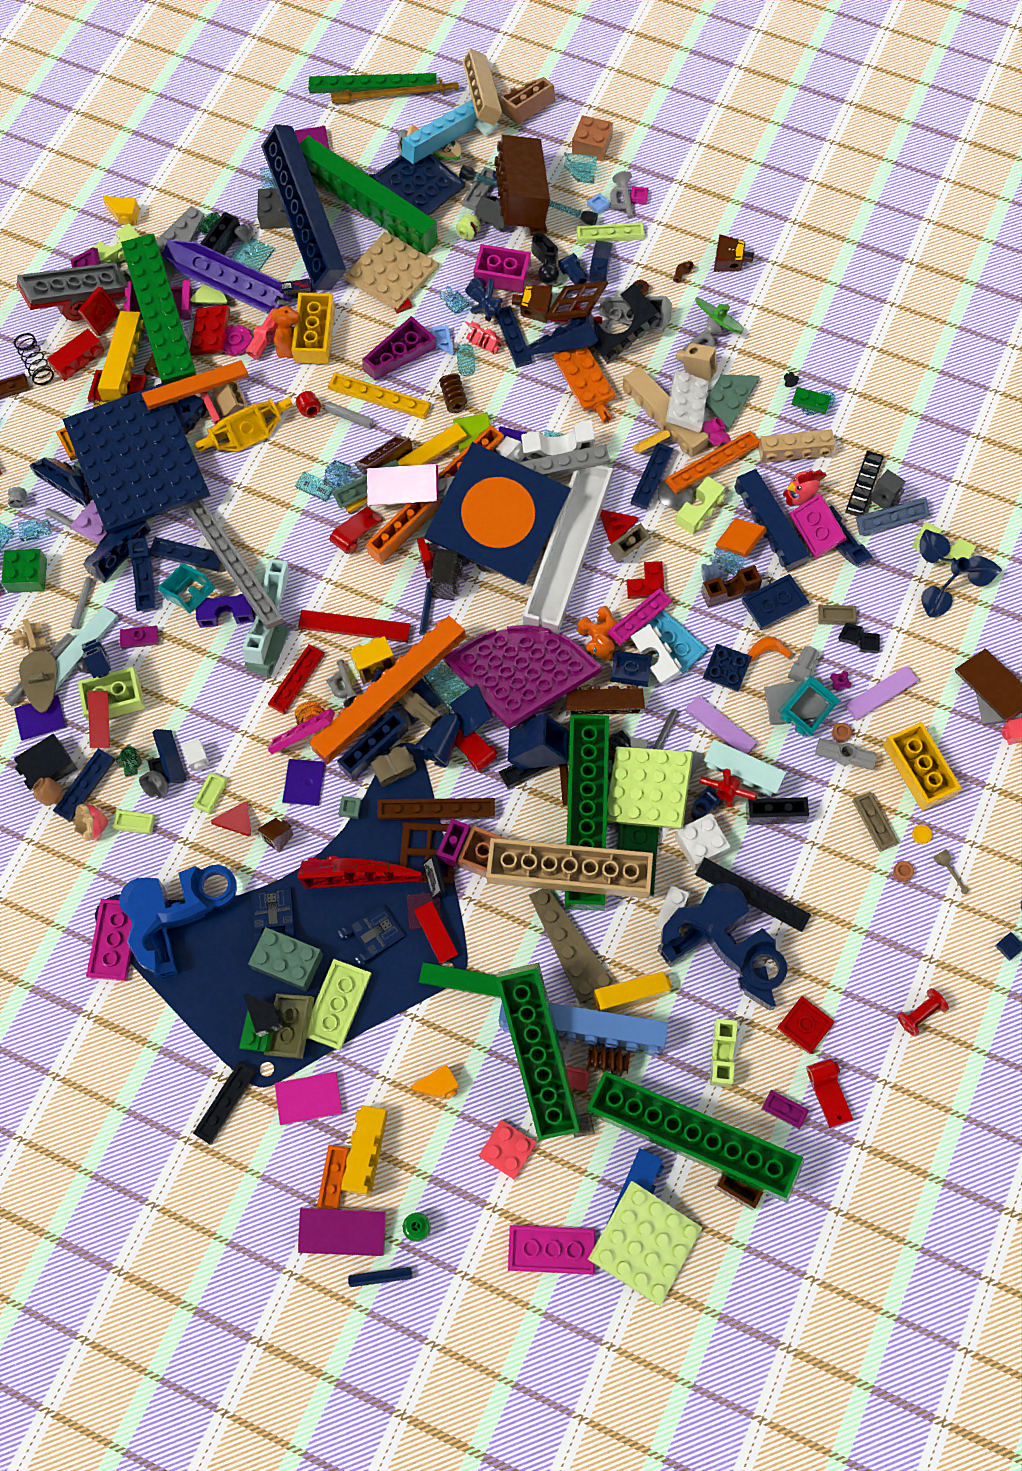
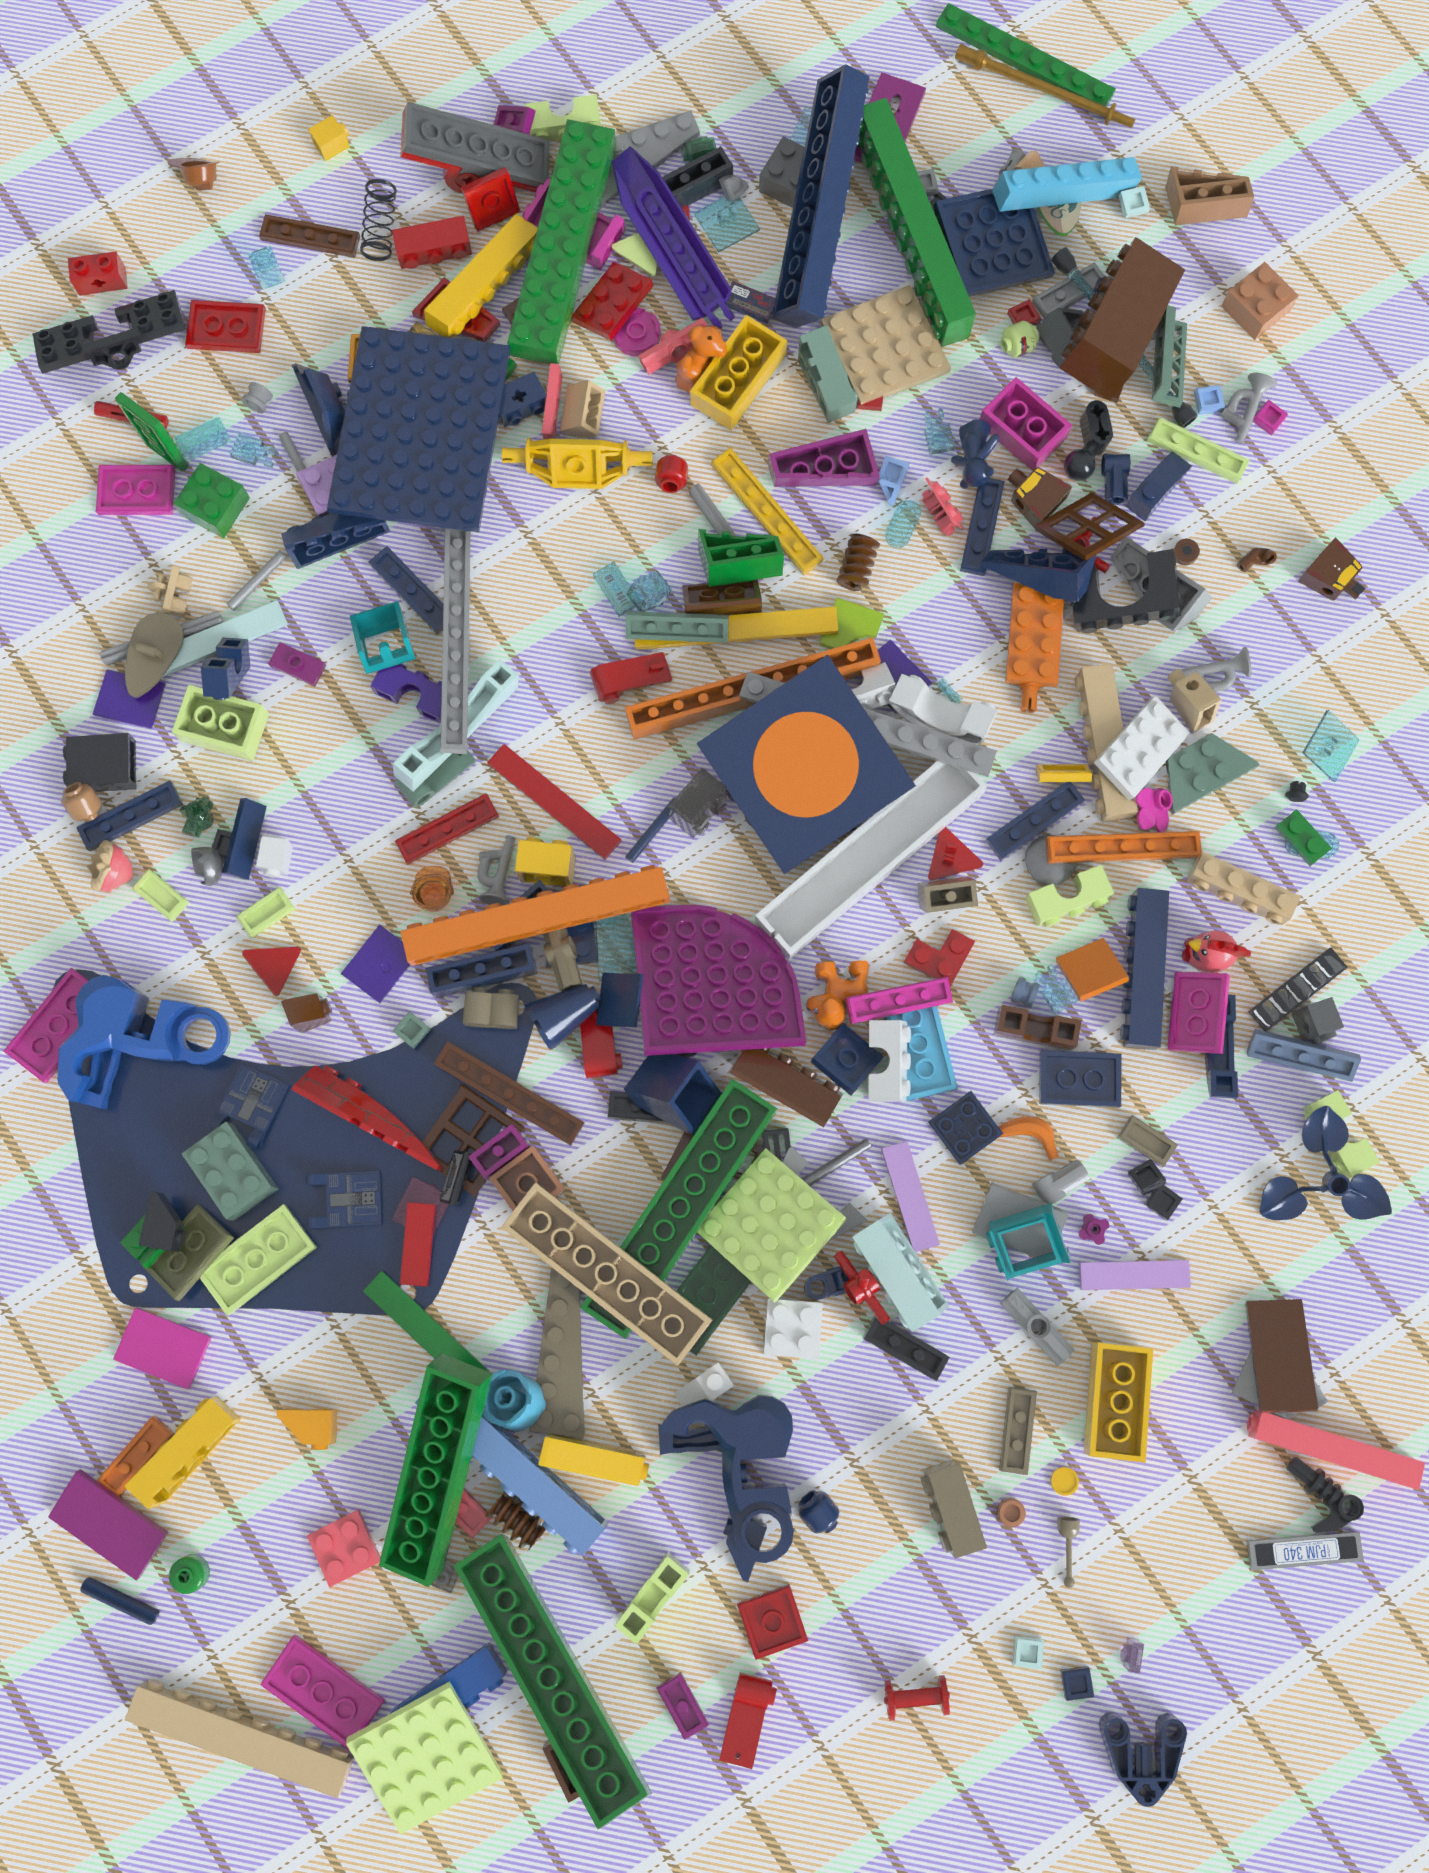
camera: 30 degrees right, 10 degrees up
(98, 719) = (186, 747): red tile -> none
(123, 209) = (604, 69): yellow slope -> none
(142, 574) = (345, 587): dark blue slope -> none
(194, 384) = (544, 371): orange tile -> none
(225, 1102) = (70, 1294): black tile -> none
(301, 731) = (406, 905): dark pink tile -> none
(366, 301) = (826, 374): none -> sand green wedge
(381, 427) = (739, 558): none -> green wedge
(402, 485) = (713, 658): tile -> none
(426, 556) = (688, 764): red plate -> none
(460, 212) = (1024, 312): none -> red tile
(482, 87) = (1158, 147): tan brick -> none
(516, 1312) = (240, 1738): none -> tan brick
(561, 984) = (513, 1400): none -> medium azure brick
(563, 194) = (1164, 359): none -> sand green fence
(581, 167) = (1219, 335): clear light blue slope -> none
(720, 315) = (1262, 652): bright green shield -> none
(755, 895) = (810, 1433): black plate -> none
(790, 940) = (818, 1512): none -> dark blue head
(792, 344) = (1331, 746): none -> clear light blue piece
(841, 732) = (1052, 1294): nougat tile -> none
(868, 884) = (953, 1509): none -> dark tan brick
(969, 946) = (1028, 1652): none -> light aqua tile

